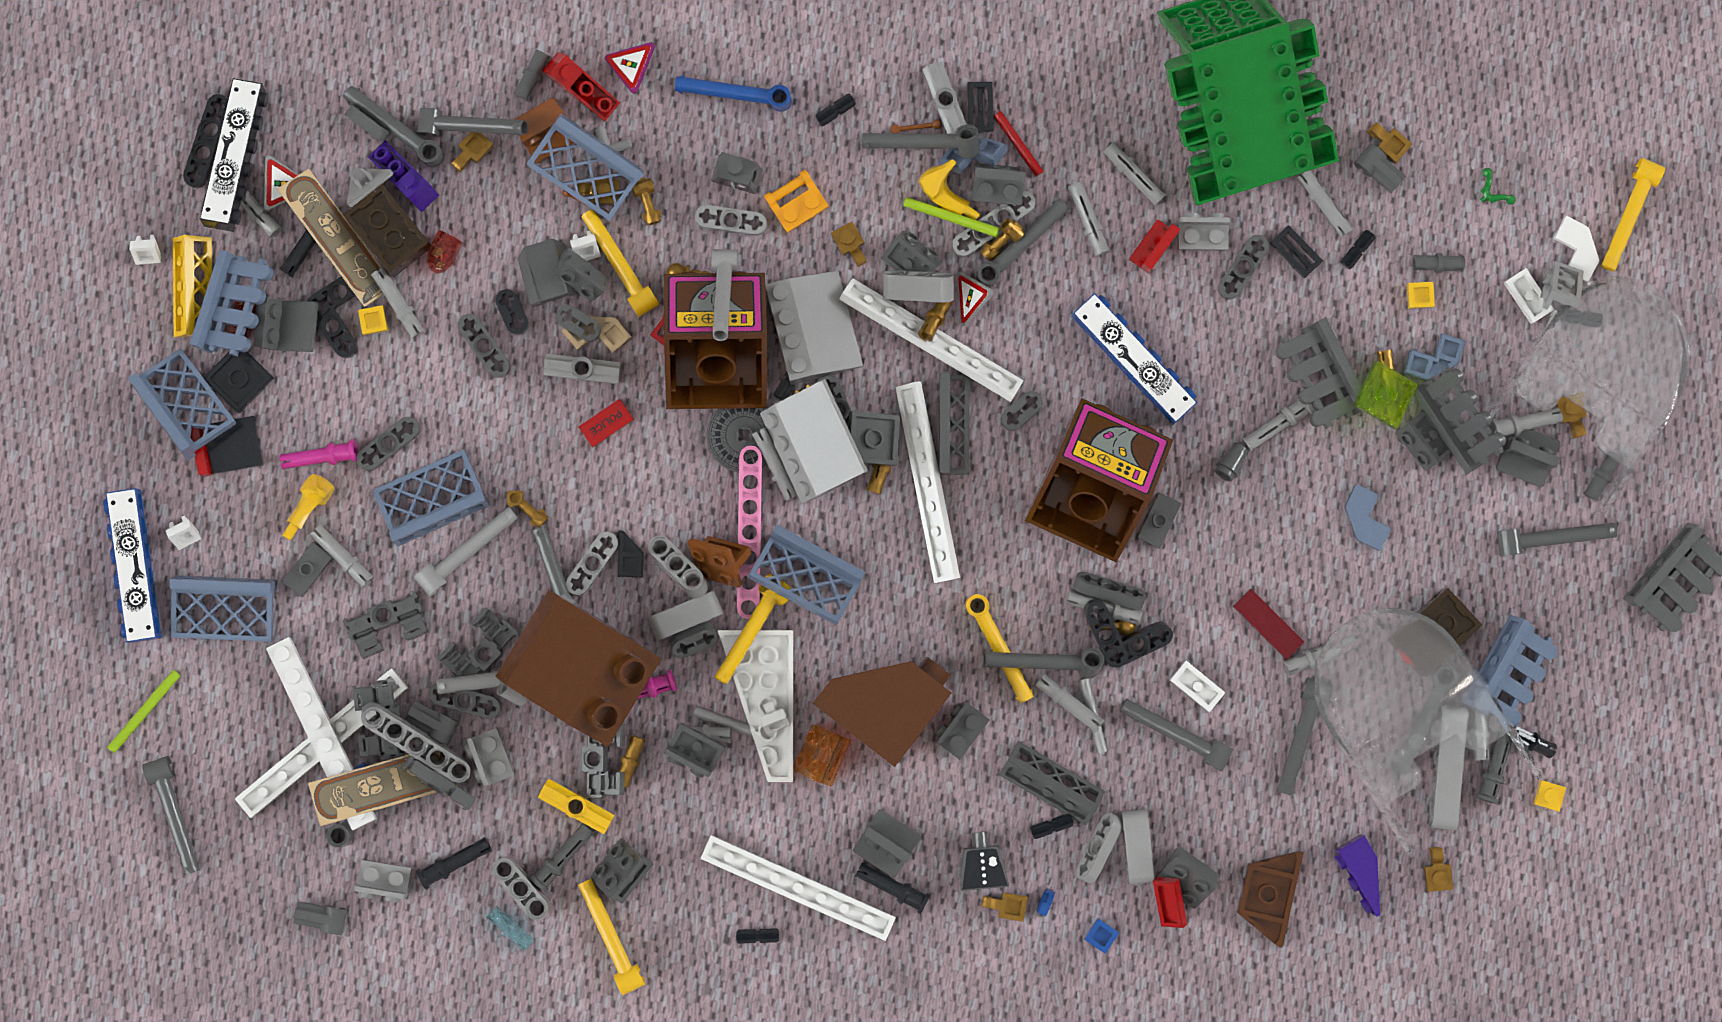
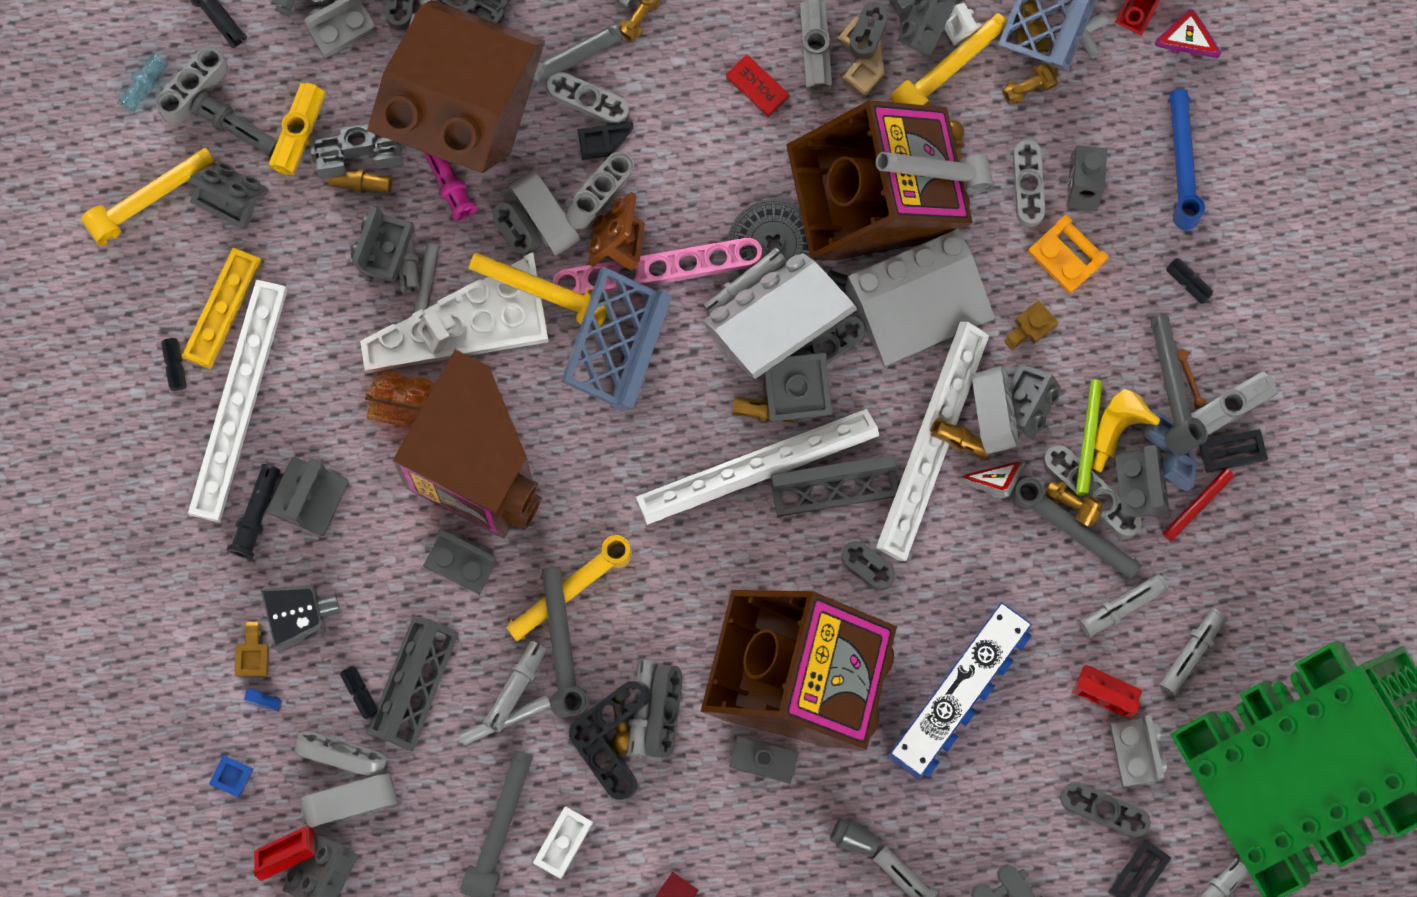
camera: 85 degrees right, 10 degrees down
(716, 890) = (221, 308): none -> yellow tile

